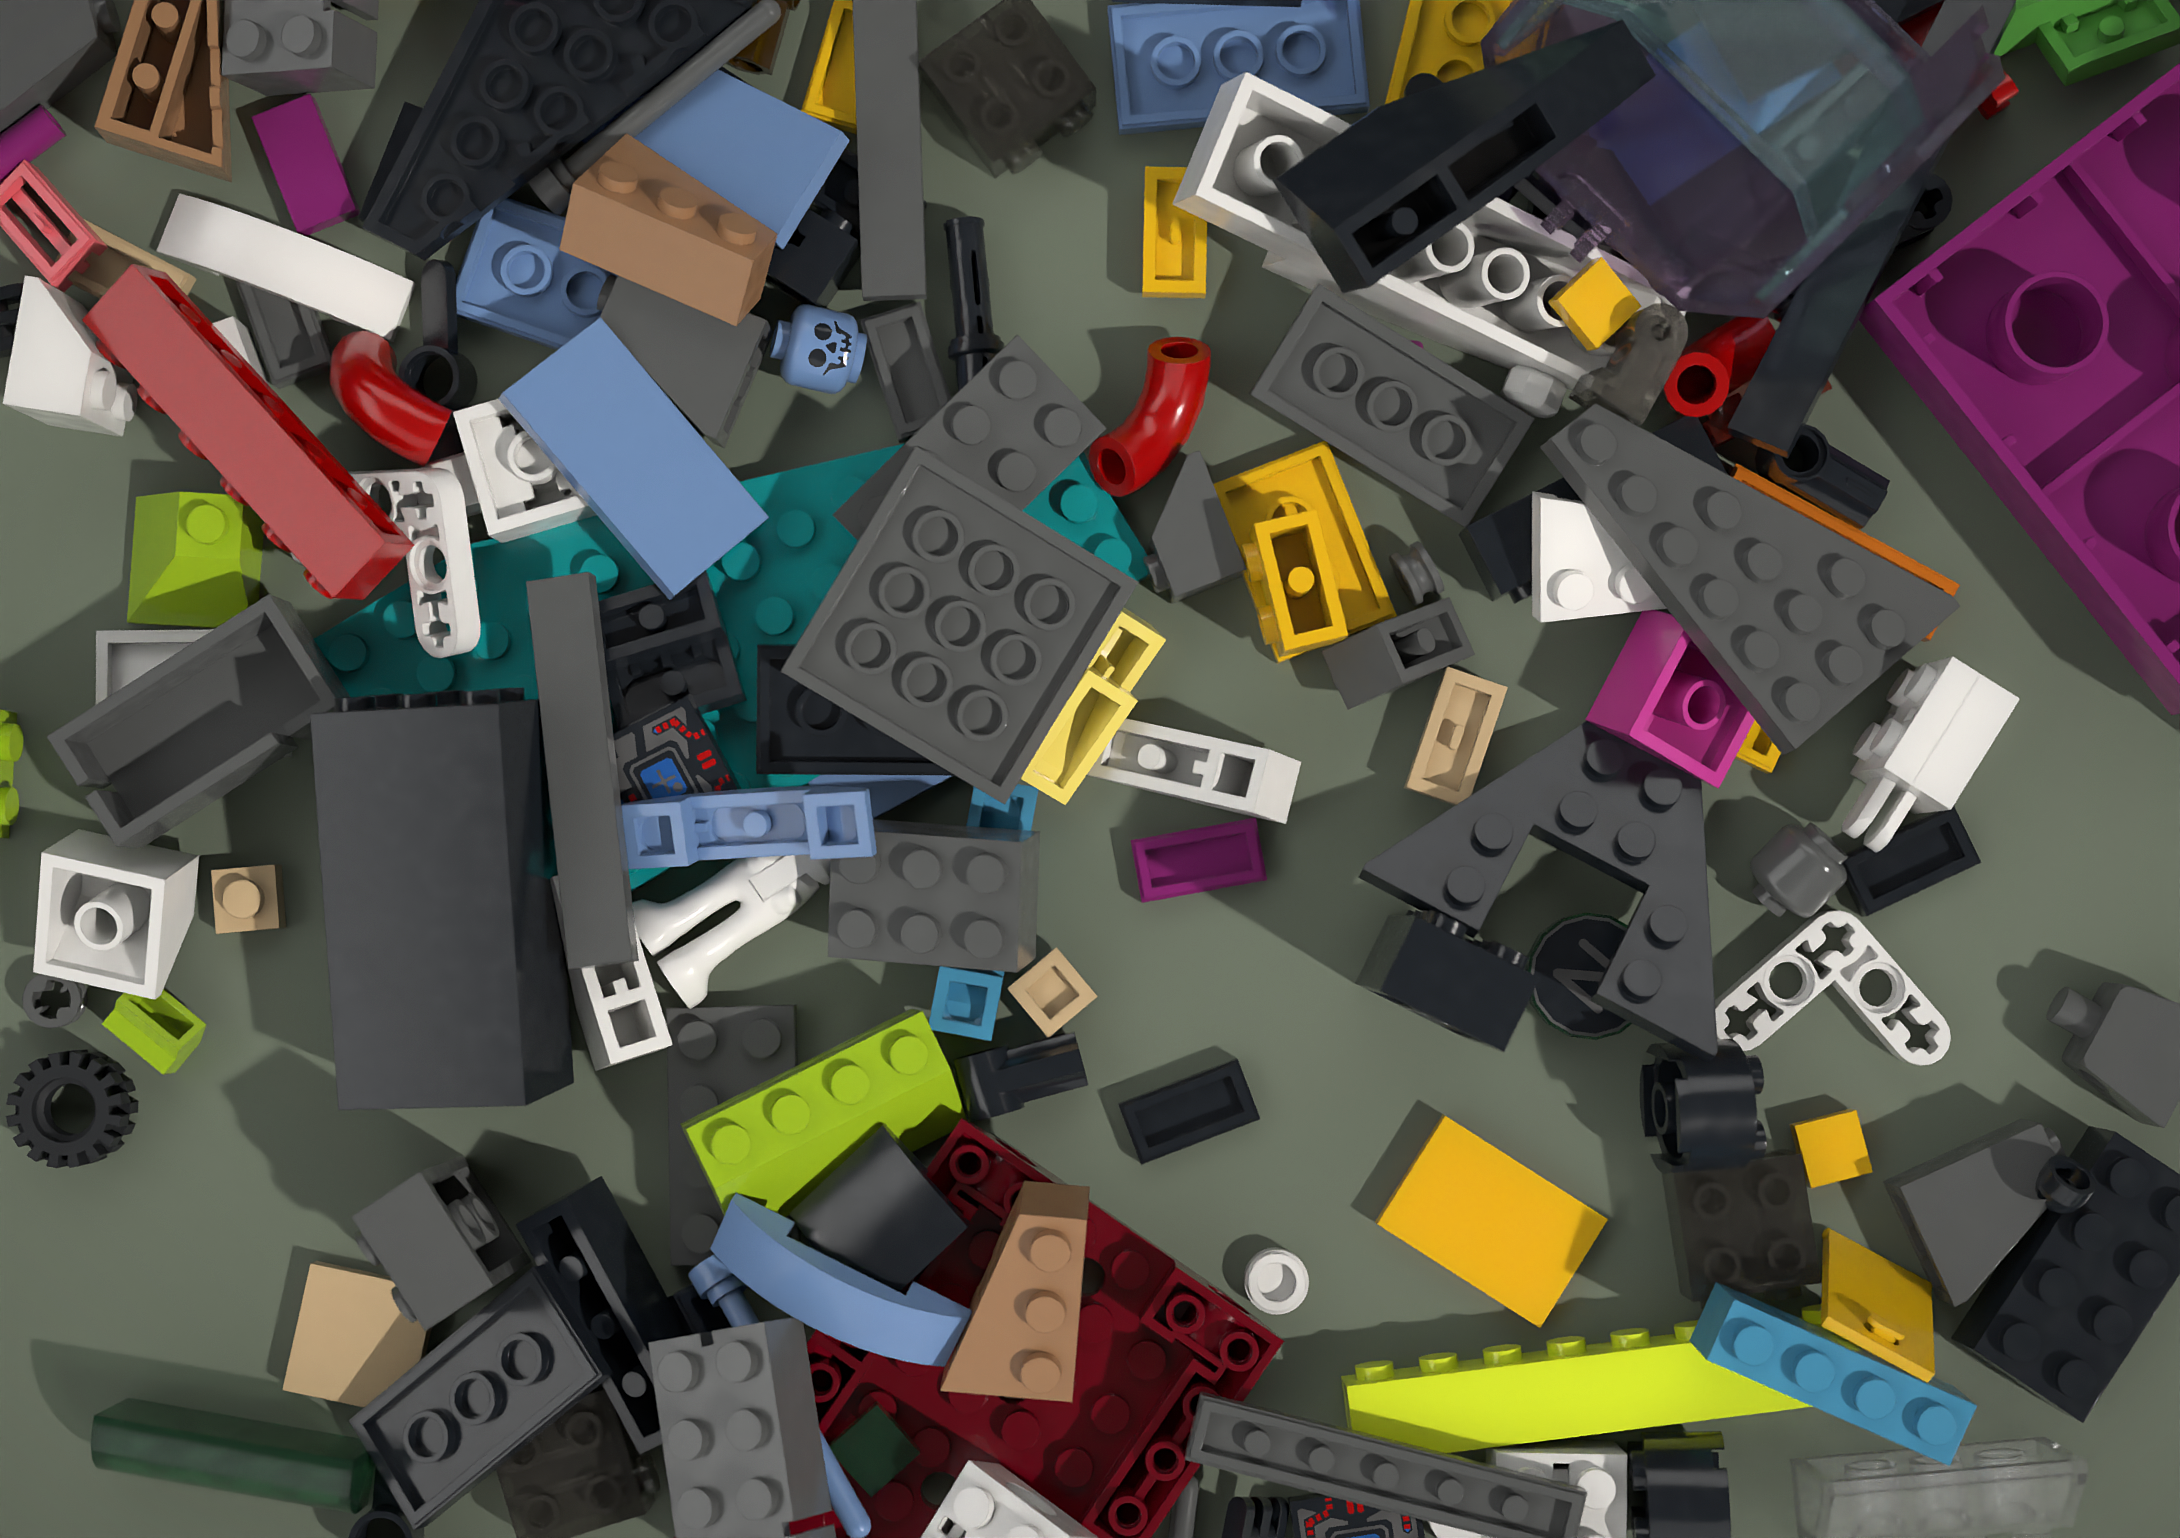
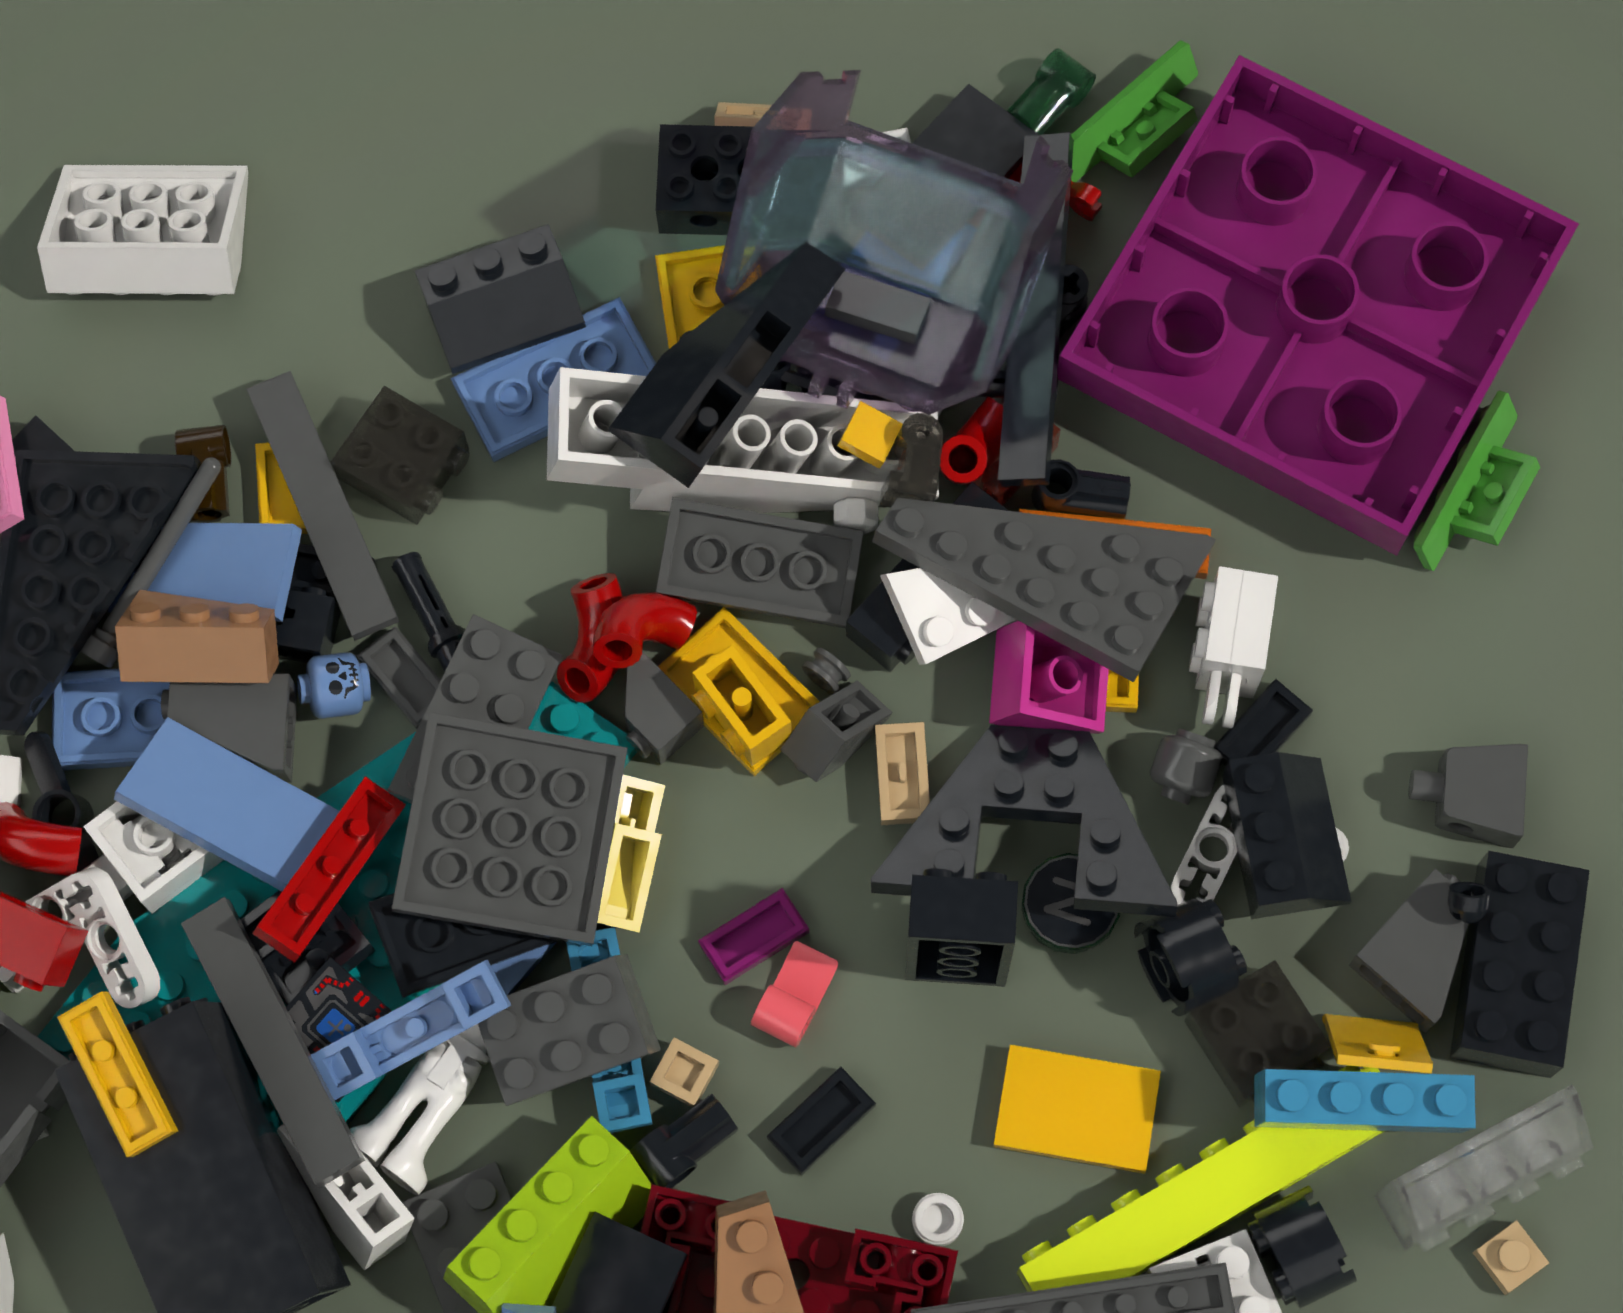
camera: 20 degrees left, 15 degrees down
(248, 899) = (52, 1253): tan plate -> none
(380, 753) = (117, 1074): none -> yellow tile
(725, 588) = (329, 869): none -> red plate
(1171, 240) = (559, 514): yellow plate -> none
(1200, 769) = (727, 868): white slope -> none
(1215, 422) = (641, 619): none -> red cylinder
(1218, 951) = (795, 995): none -> coral panel
(1675, 139) = (878, 307): none -> dark grey tile
(1831, 1148) = (1300, 954): yellow tile -> none
(1879, 1006) = (1285, 834): none -> black slope

